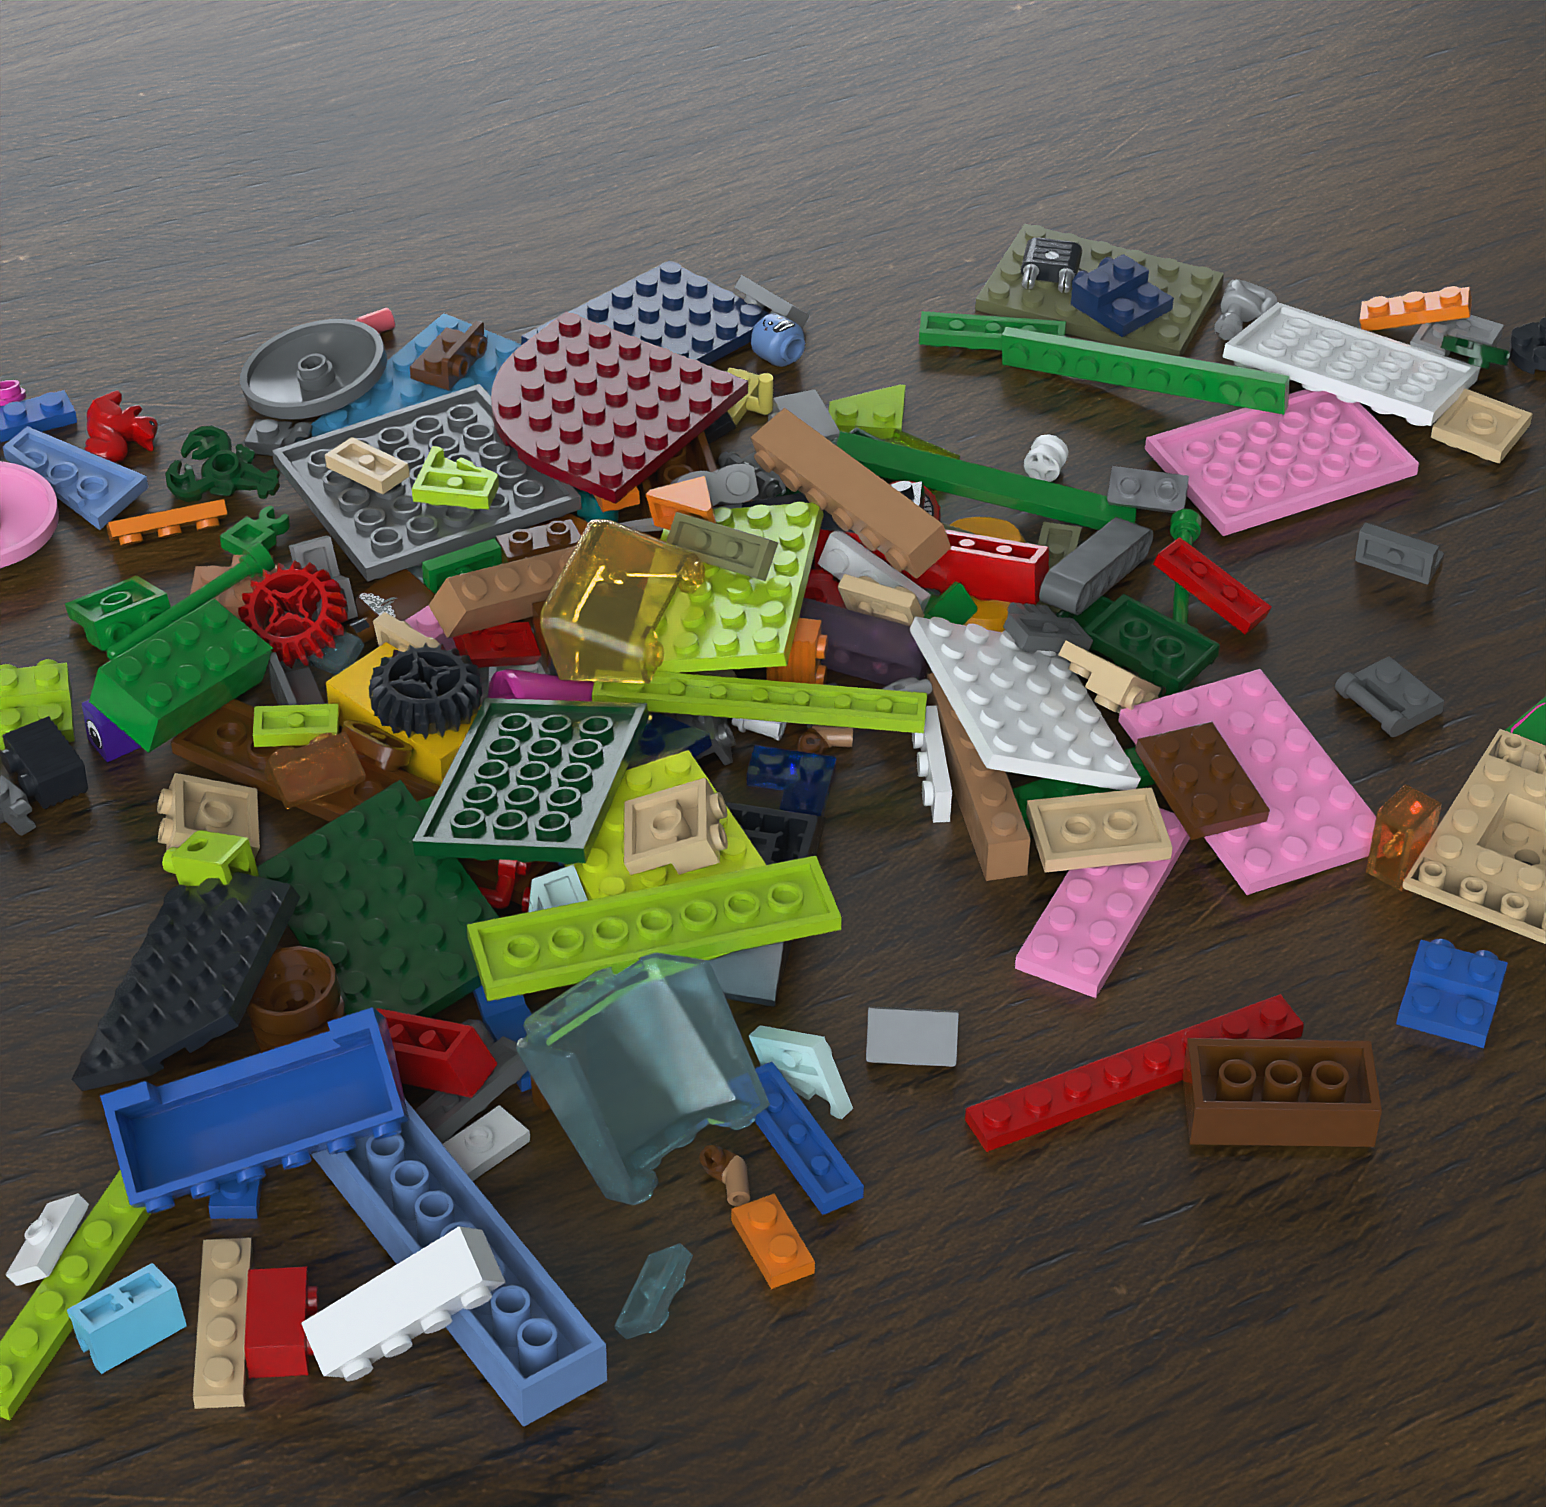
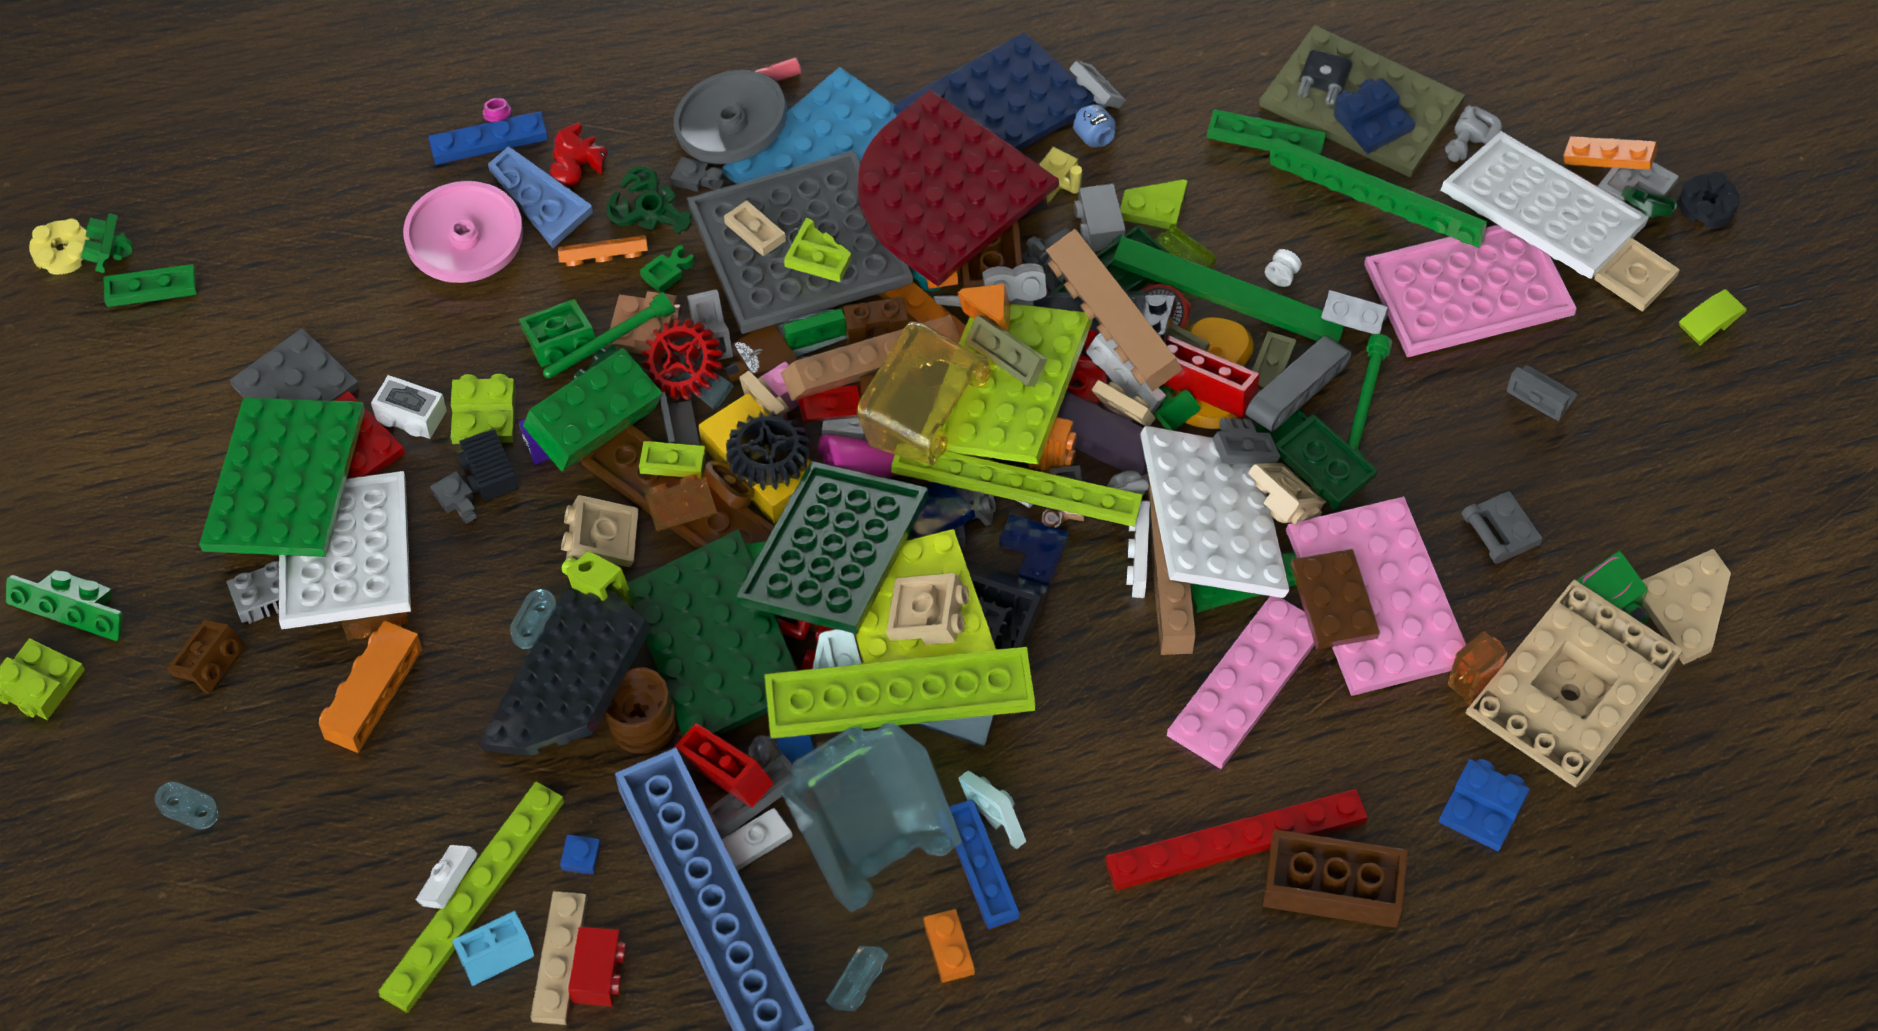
camera: 10 degrees right, 15 degrees up
(128, 926) = (530, 620): none -> clear light blue plate
(257, 1113) = (598, 808): blue windscreen -> none
(404, 1303) = (679, 976): white brick -> none
(450, 356) = (836, 117): reddish brown bracket -> none
(728, 1169) = (928, 883): arm -> none
(912, 1036) = (1079, 786): panel -> none
(1098, 829) = (1249, 631): tan plate -> none
(1212, 585) = (1385, 409): red plate -> none

